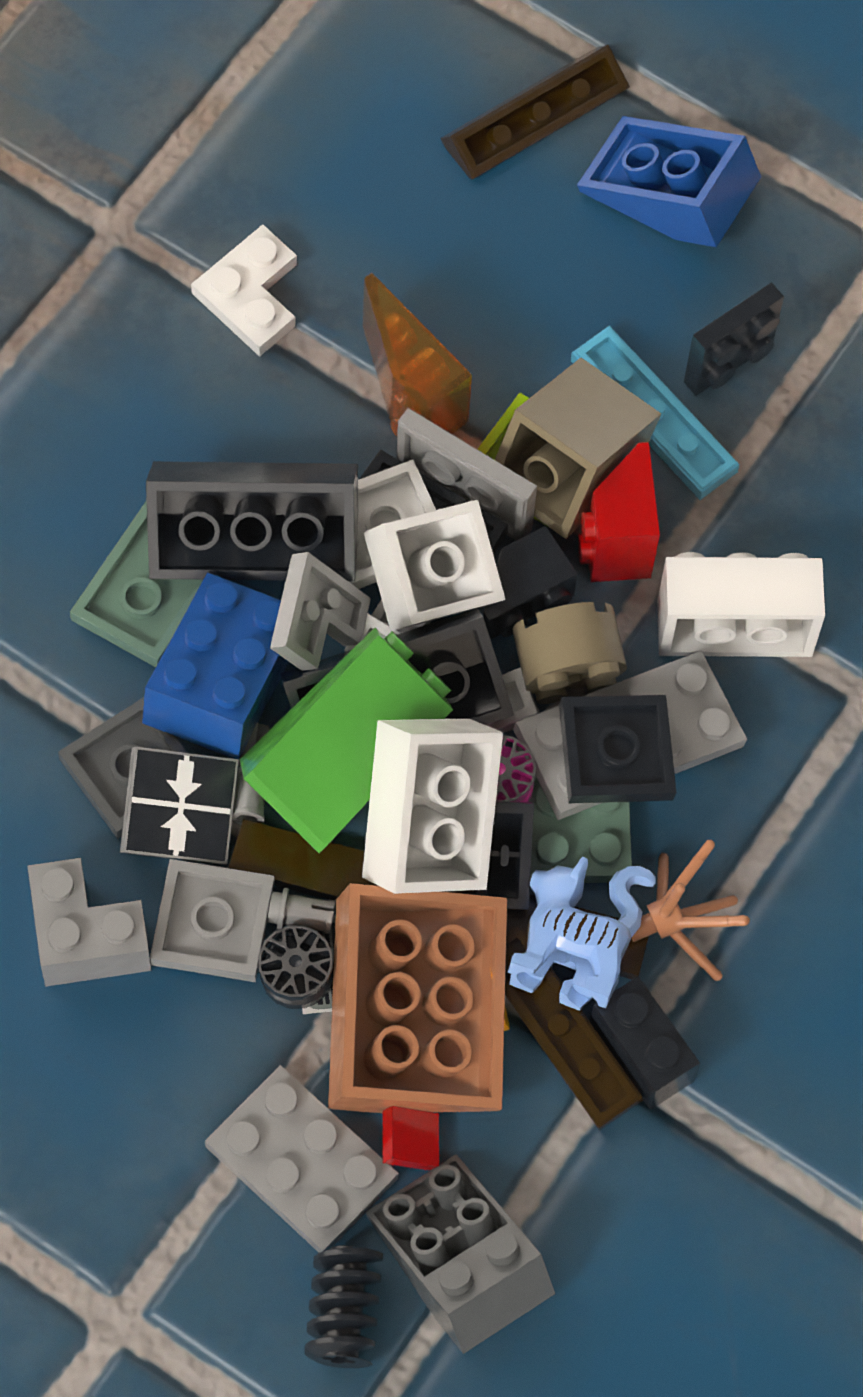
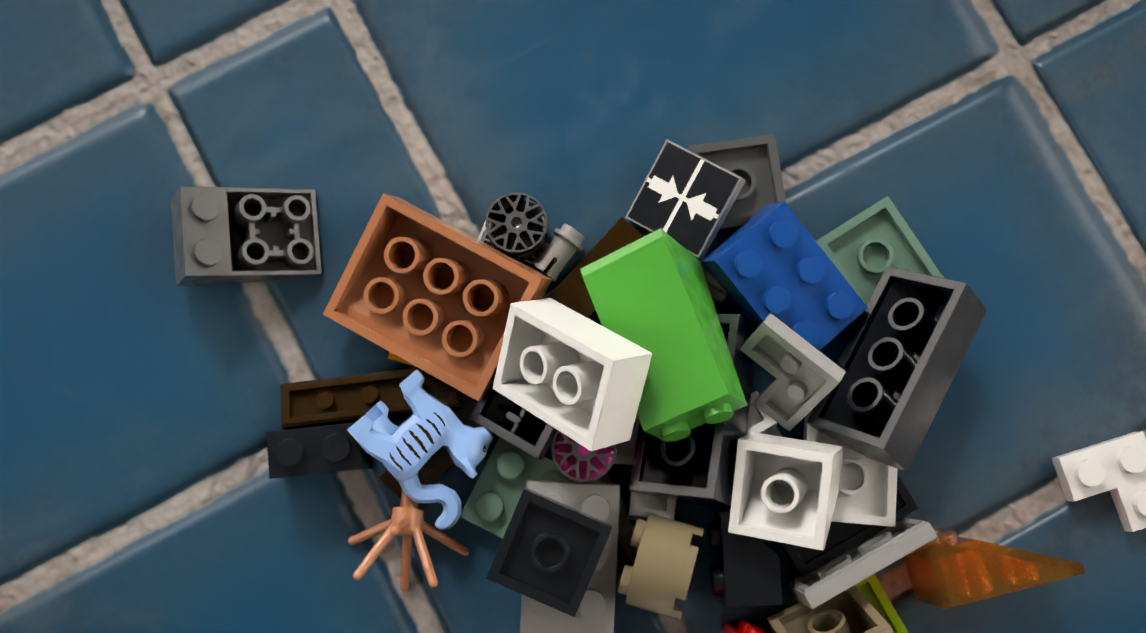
camera: 120 degrees right, 15 degrees up
(83, 940) = (623, 76): light grey brick -> none
(212, 920) = (586, 184): light grey plate -> none
(301, 1160) = (372, 157): light grey plate -> none
(341, 1306) = (243, 134): black piece -> none
(410, 1138) = (339, 240): red tile -> none

